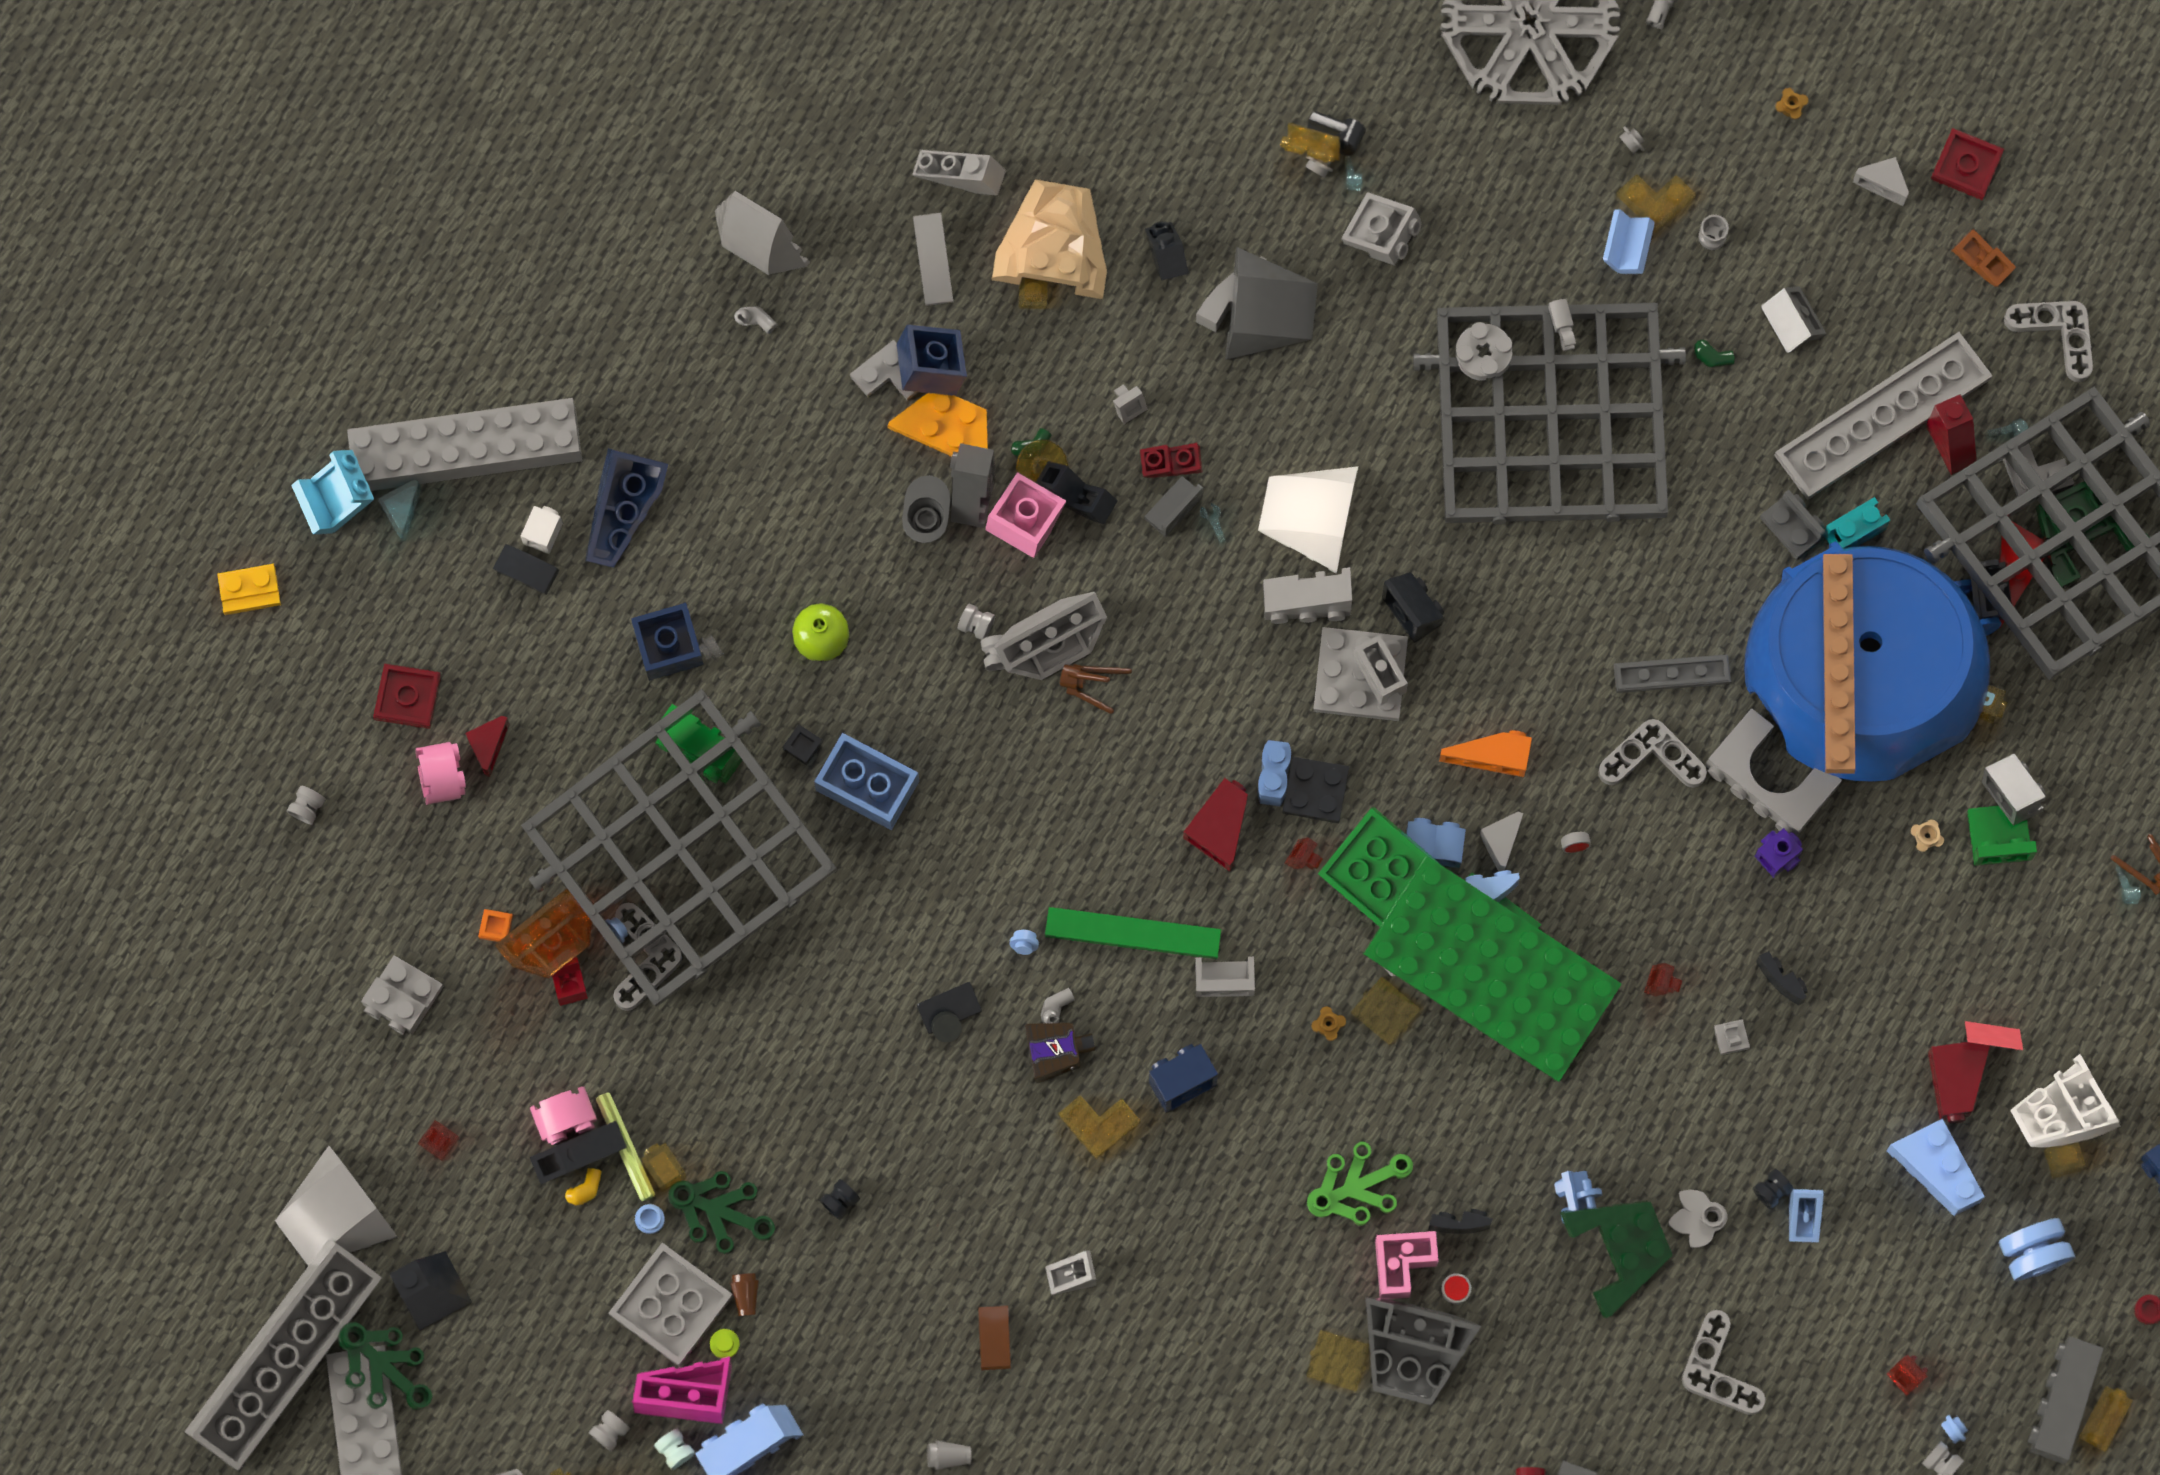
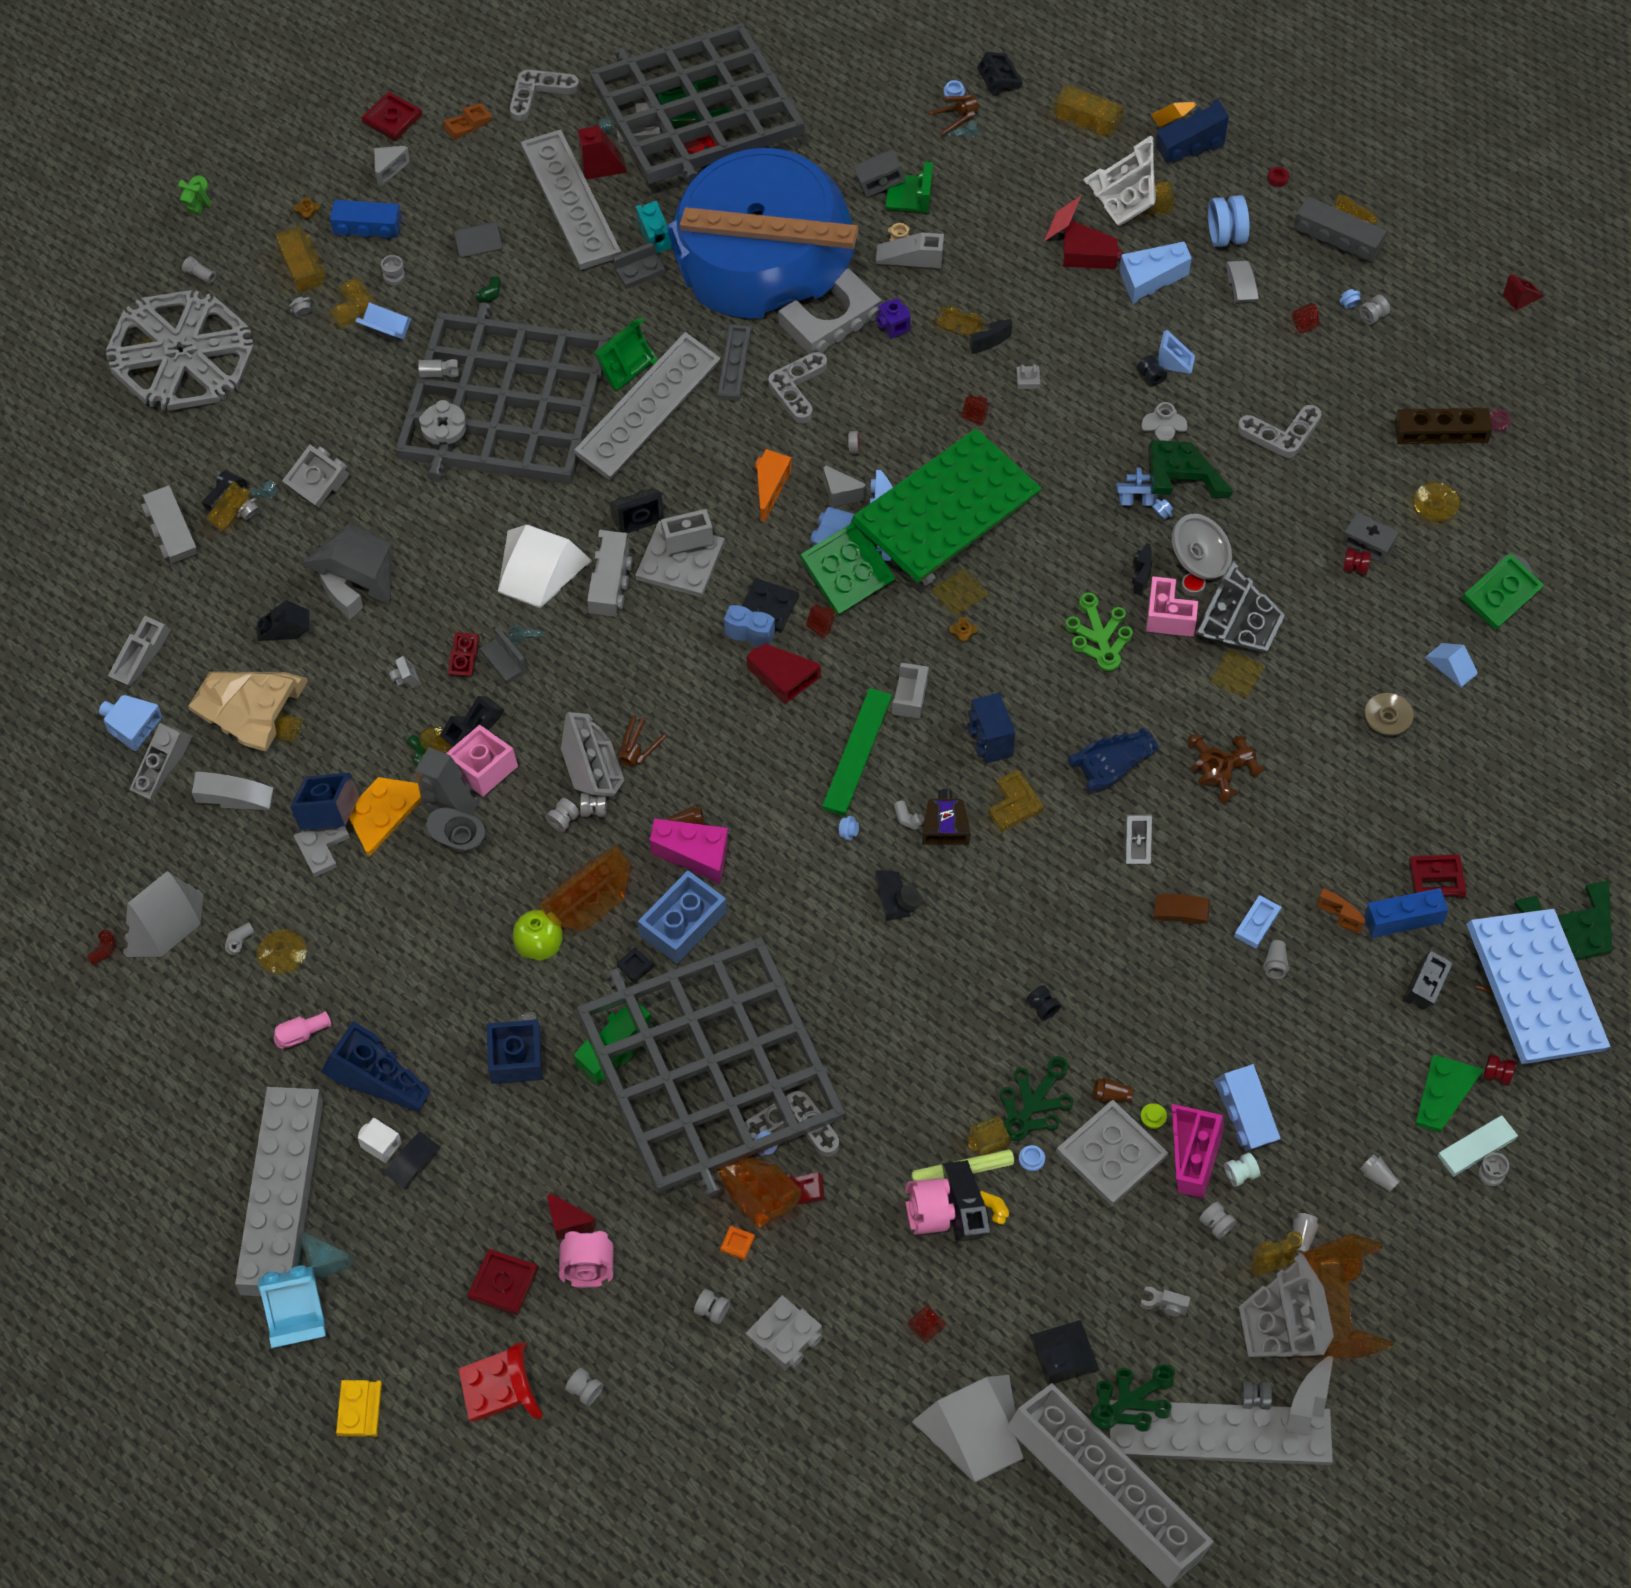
camera: 80 degrees left, 15 degrees down
(293, 717) = (498, 1384): none -> red piece
(416, 914) = (711, 1306): none -> light grey wheel
(502, 1395) = (1172, 1303): none -> light grey plate
(655, 413) = (299, 1030): none -> bright pink arm
(719, 185) = (105, 948): none -> clear red arm
(754, 380) = (283, 960): none -> clear yellow dish
(877, 670) = (589, 891): none -> clear orange wedge
(960, 773) = (691, 846): none -> dark pink wedge
(993, 1427) = (1257, 922): none -> light blue plate
(999, 760) = (690, 815): none -> reddish brown cone
(1002, 123) = (130, 719): none -> light blue torso
(1098, 105) = (139, 650): none -> light grey slope
(1179, 1227) = (1112, 758): none -> dark blue animal
(1193, 1351) = (1218, 765): none -> reddish brown piece
(1269, 85) = (168, 525): none -> light grey wedge
(1508, 1304) = (1201, 546): none -> light grey dish
(1557, 1235) = (1163, 509): none -> light blue plate
(1574, 584) = (646, 406): none -> light grey plate
(1637, 542) = (625, 355): none -> green piece
(1704, 118) = (300, 259): none -> clear yellow brick
(1786, 178) = (365, 218): none -> blue brick
(1801, 926) = (952, 317): none -> clear yellow hinge
(1895, 855) = (913, 250): none -> light grey slope
(1950, 1284) = (1242, 281): none -> light grey slope

